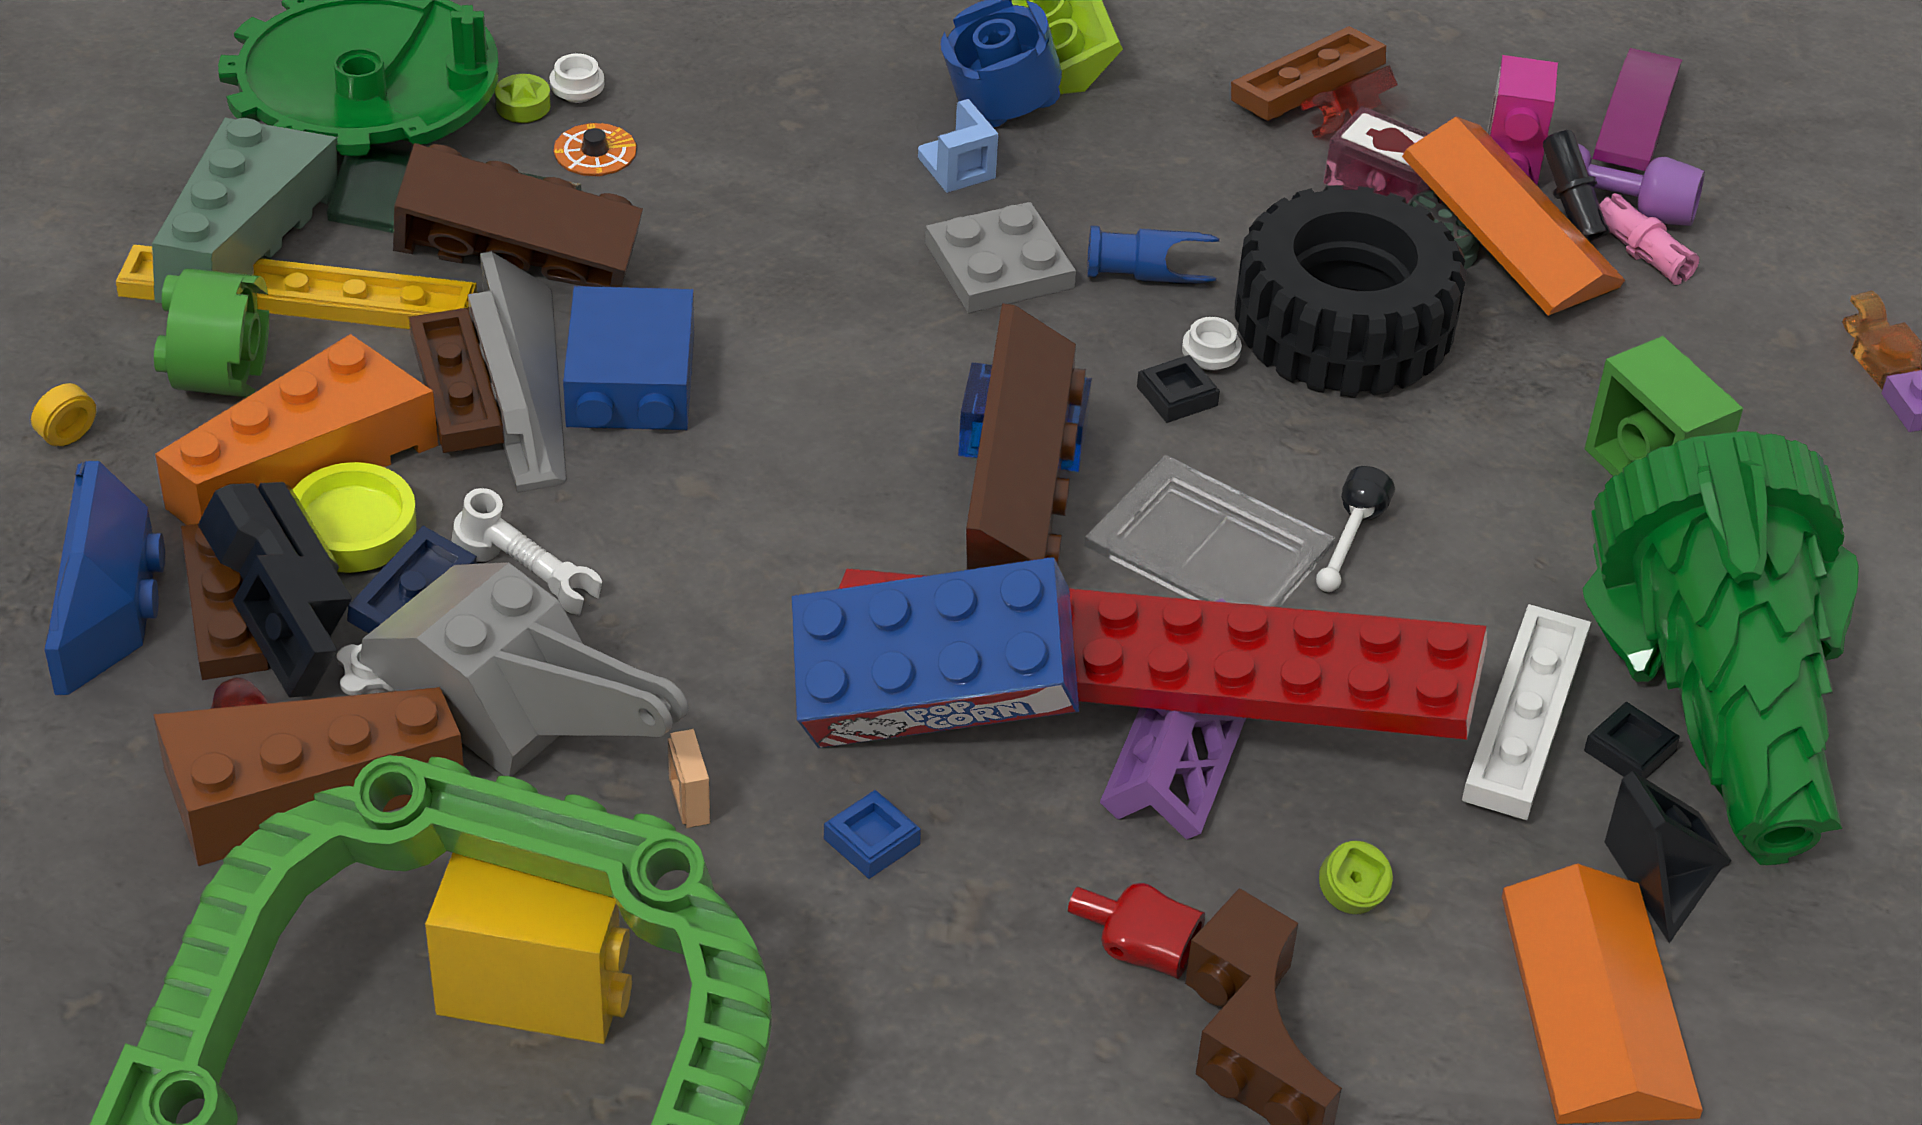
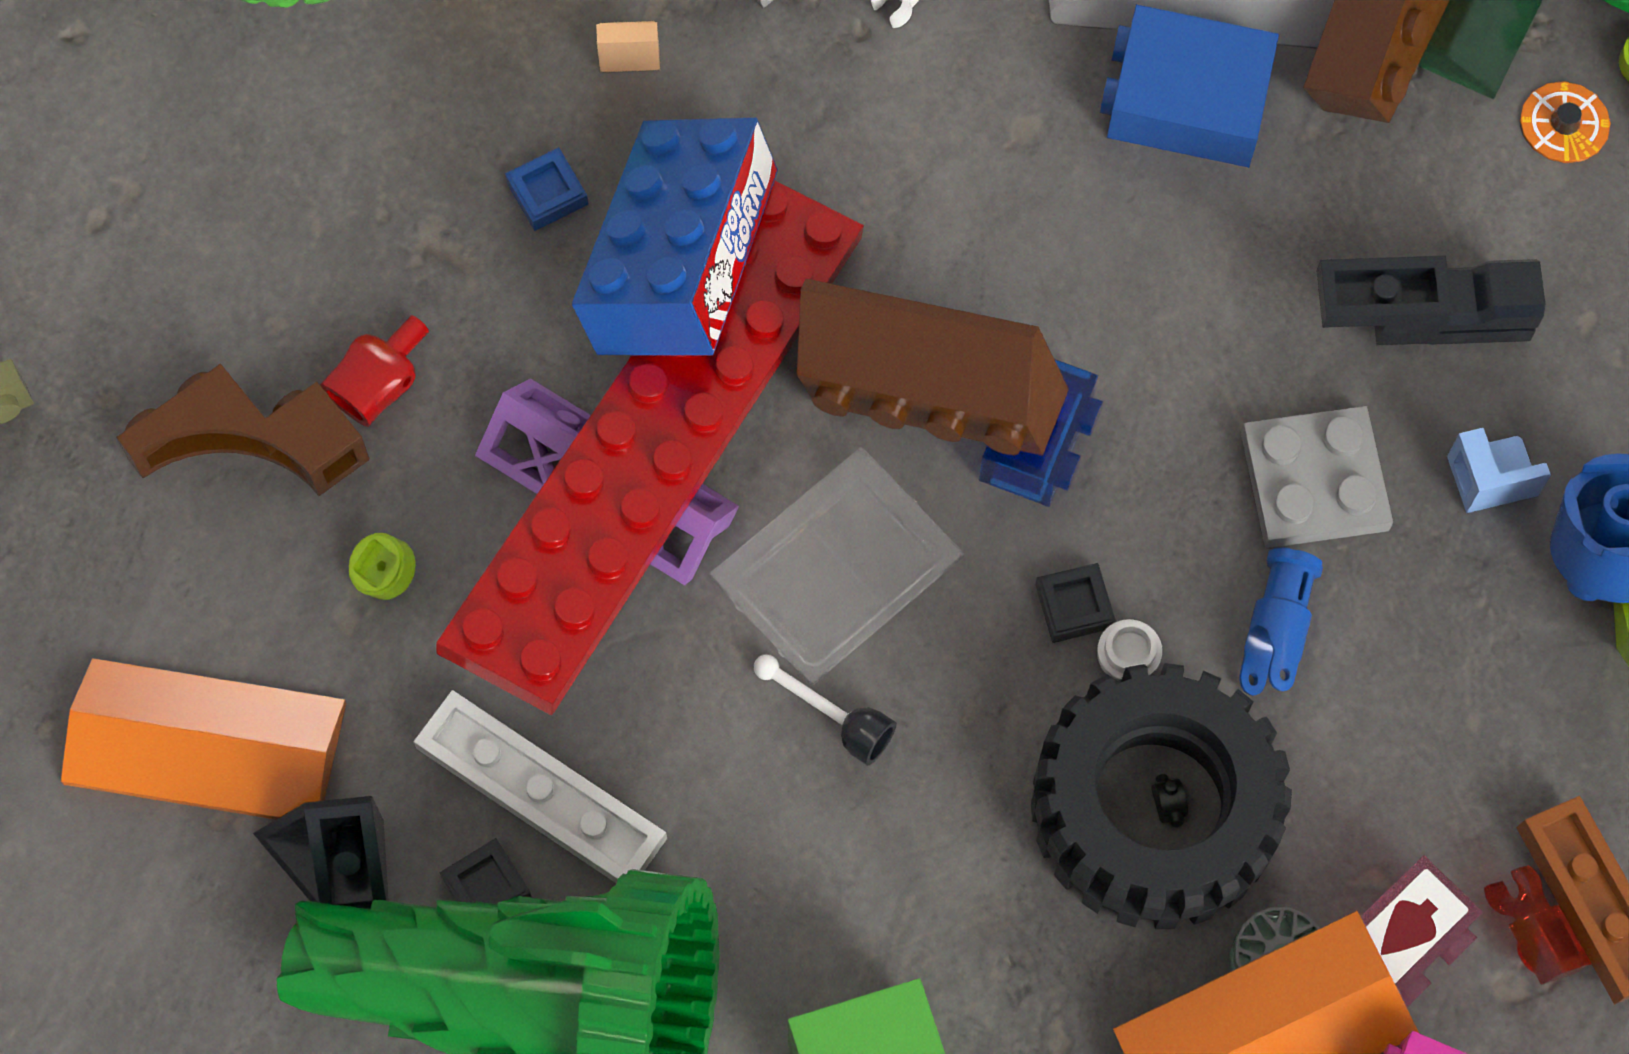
camera: 105 degrees right, 25 degrees up
(818, 171) = (1433, 304): none -> black plate

